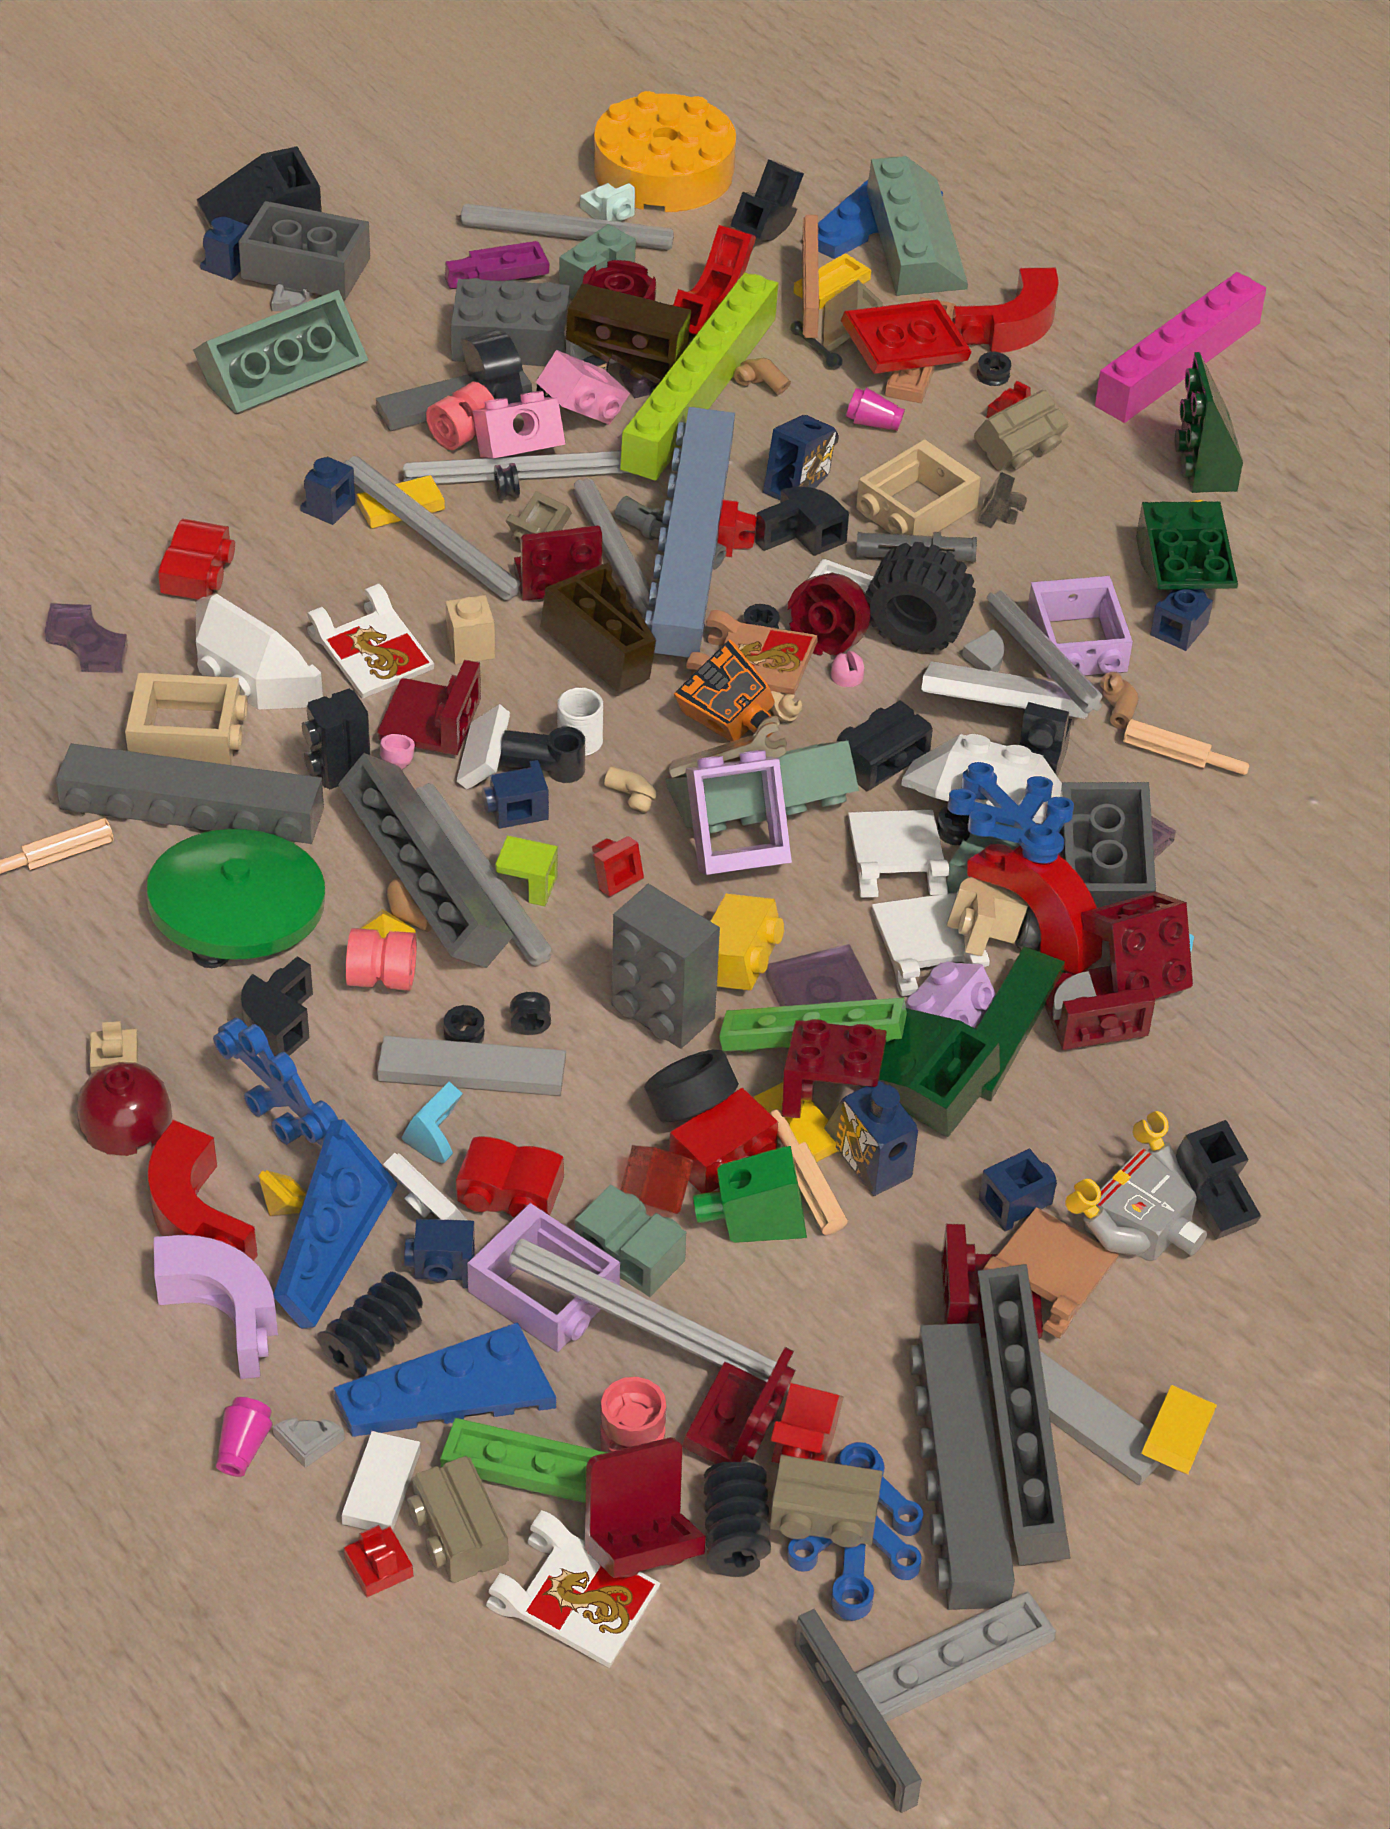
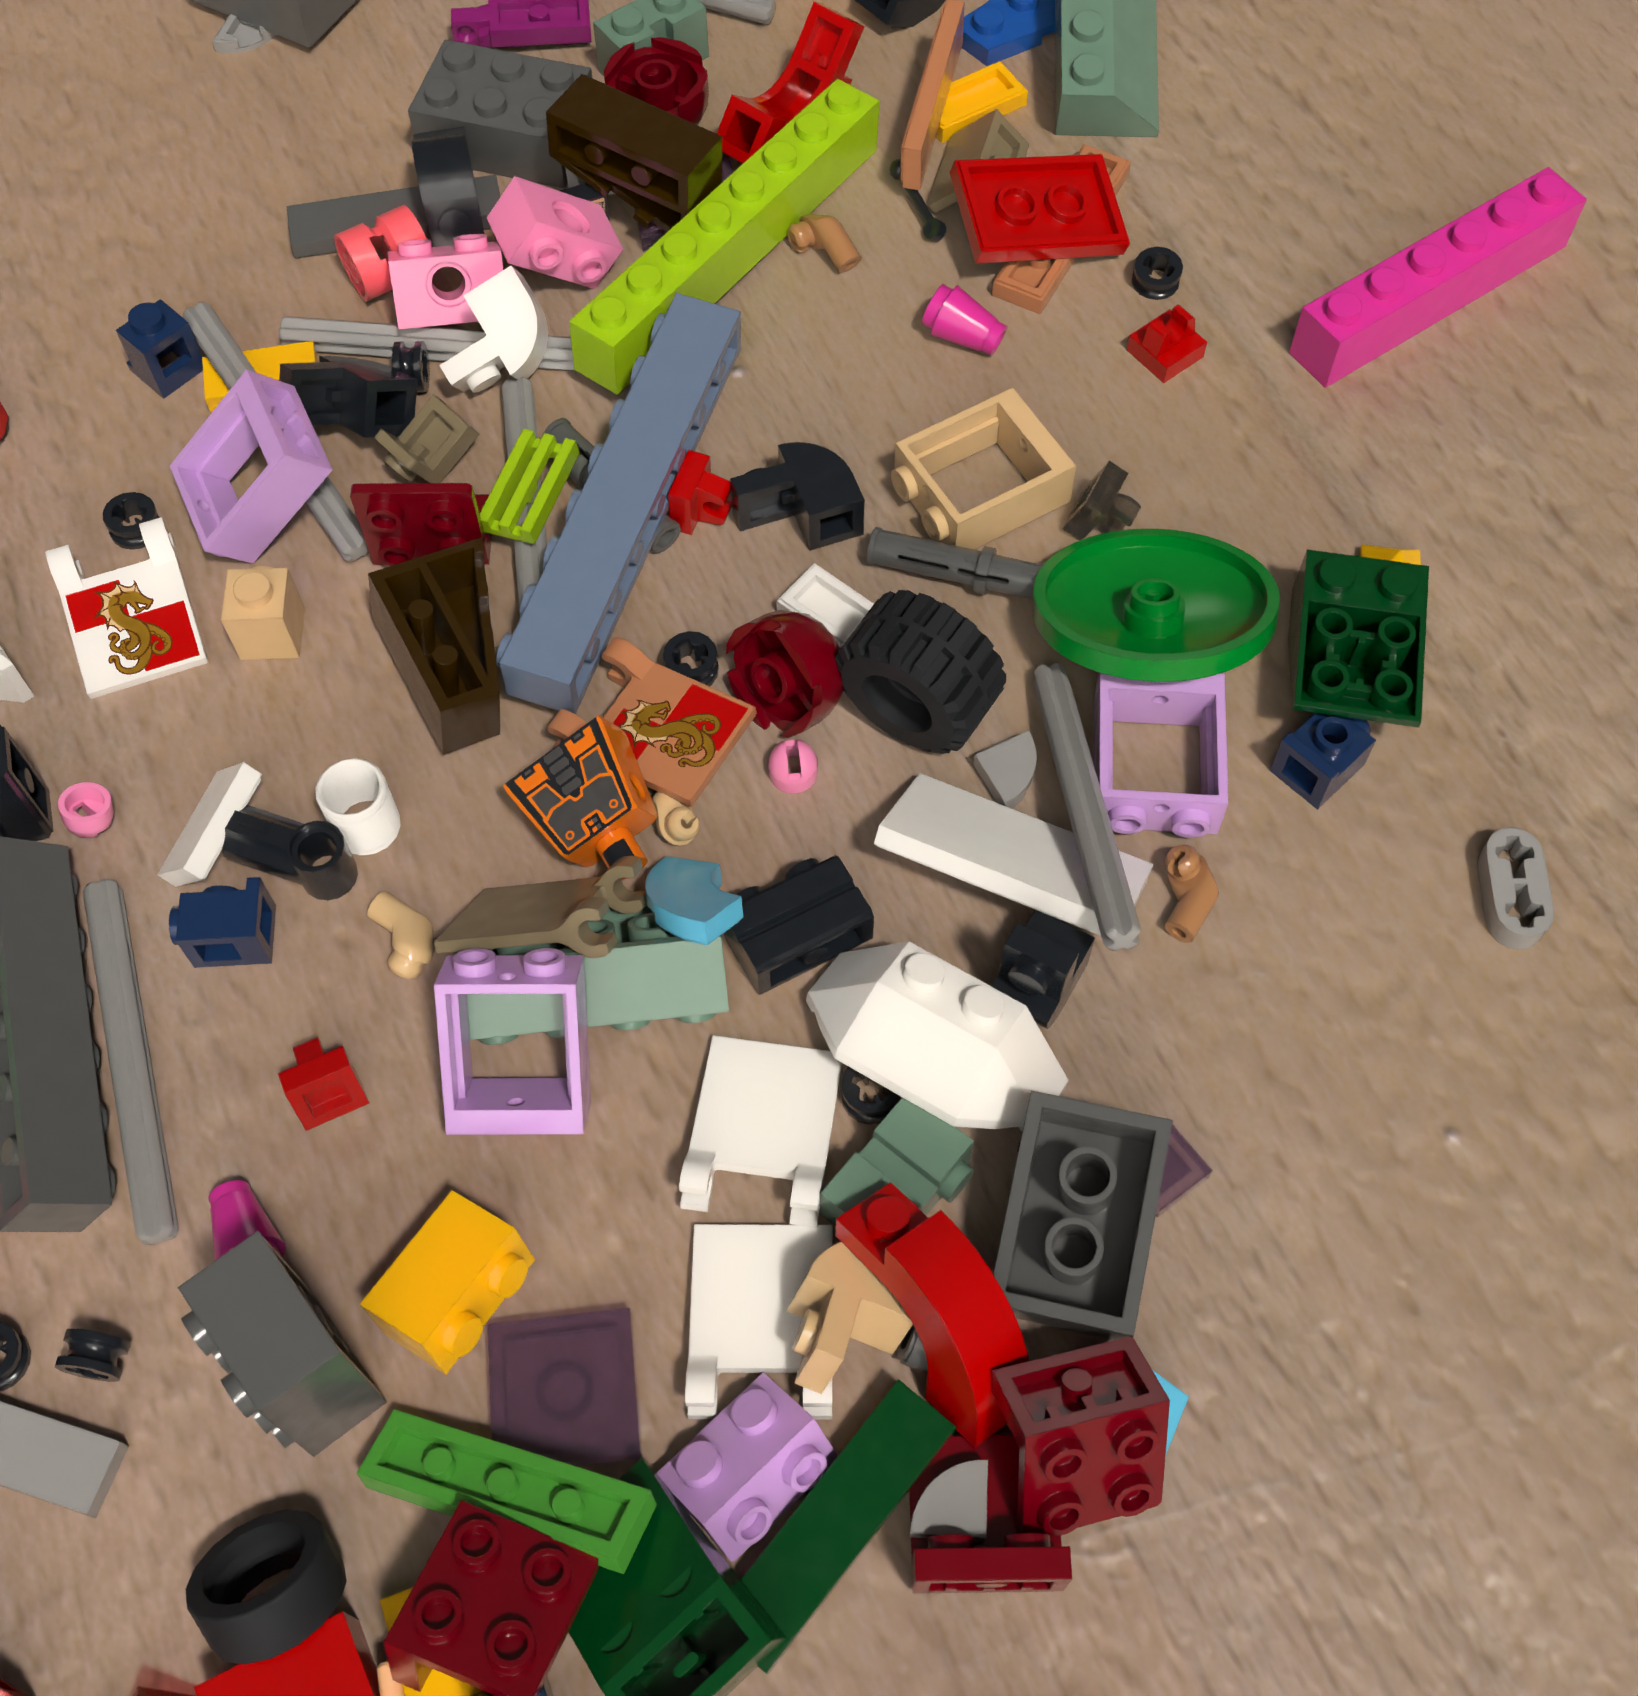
camera: 15 degrees right, 15 degrees up
(281, 353) = (186, 120): sand green slope -> none
(347, 603) = (119, 510): none -> black bush
(411, 530) = (249, 416): none -> lavender window
(434, 713) = (164, 749): dark red bracket -> none
(478, 499) = (354, 394): none -> black brick
(533, 862) = (187, 1068): lime panel -> none
(577, 447) = (514, 333): none -> white brick
(593, 944) = (237, 1216): none -> dark pink cone
(623, 514) = (519, 484): none -> lime tile
(799, 455) = (828, 386): dark blue torso -> none
(818, 733) = (689, 901): none -> medium azure tile
(1014, 323) = (1211, 202): red arch -> none
(1022, 430) = (1163, 388): dark tan brick -> none
(1039, 841) = (925, 1158): blue plant -> none
(1054, 545) = (1155, 605): none -> green dish
(1179, 747) = (1260, 1001): light nougat axle -> none
(1207, 435) = (1438, 439): dark green slope -> none
(1308, 672) = (1528, 886): none -> light grey beam

